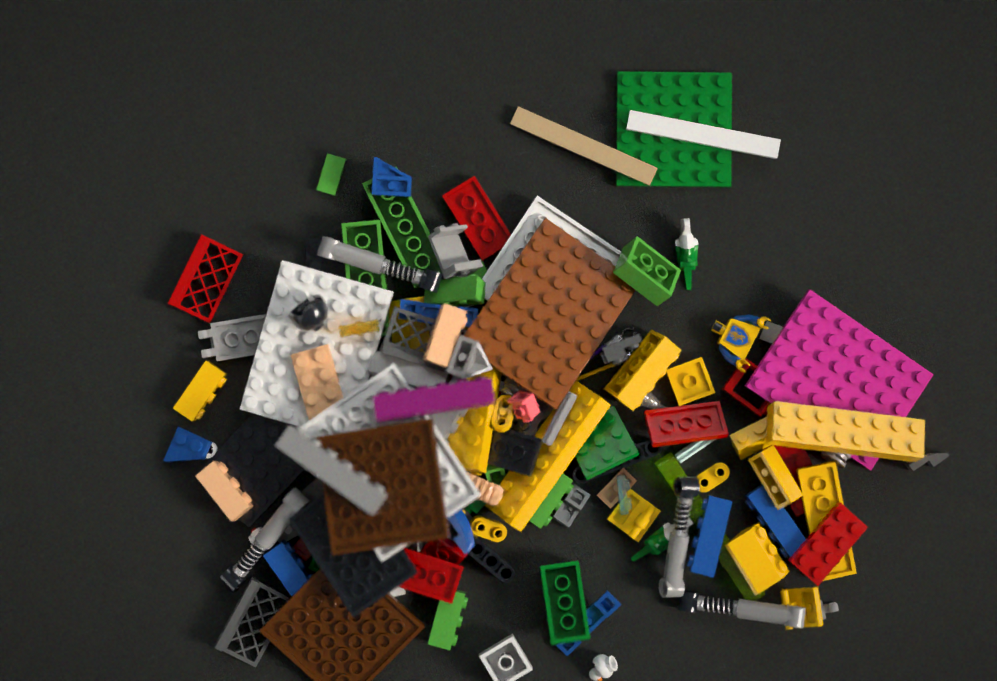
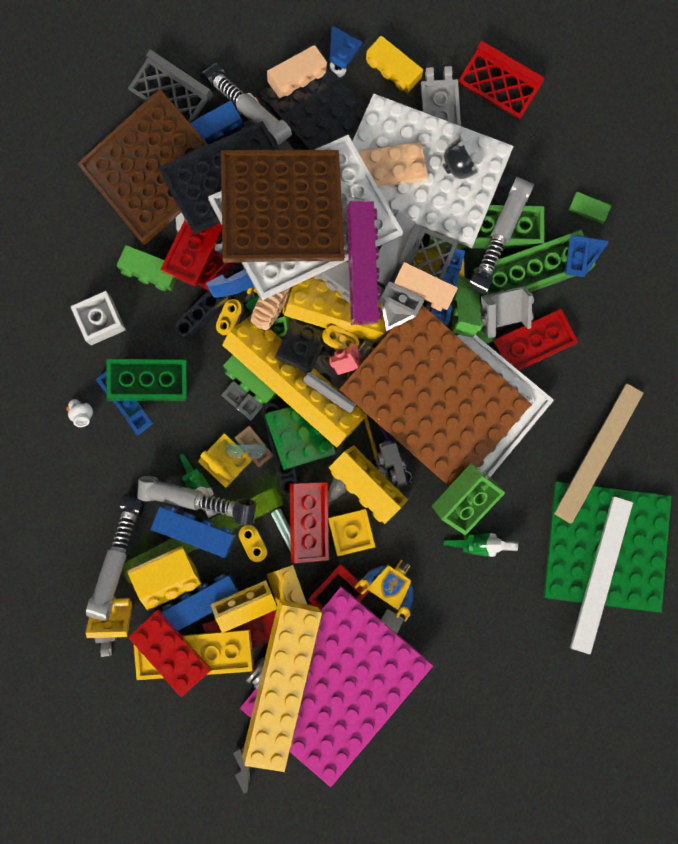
camera: 95 degrees right, 5 degrees down
(331, 469) = (304, 157): light grey brick -> none
(359, 328) = (440, 206): clear yellow pin -> none

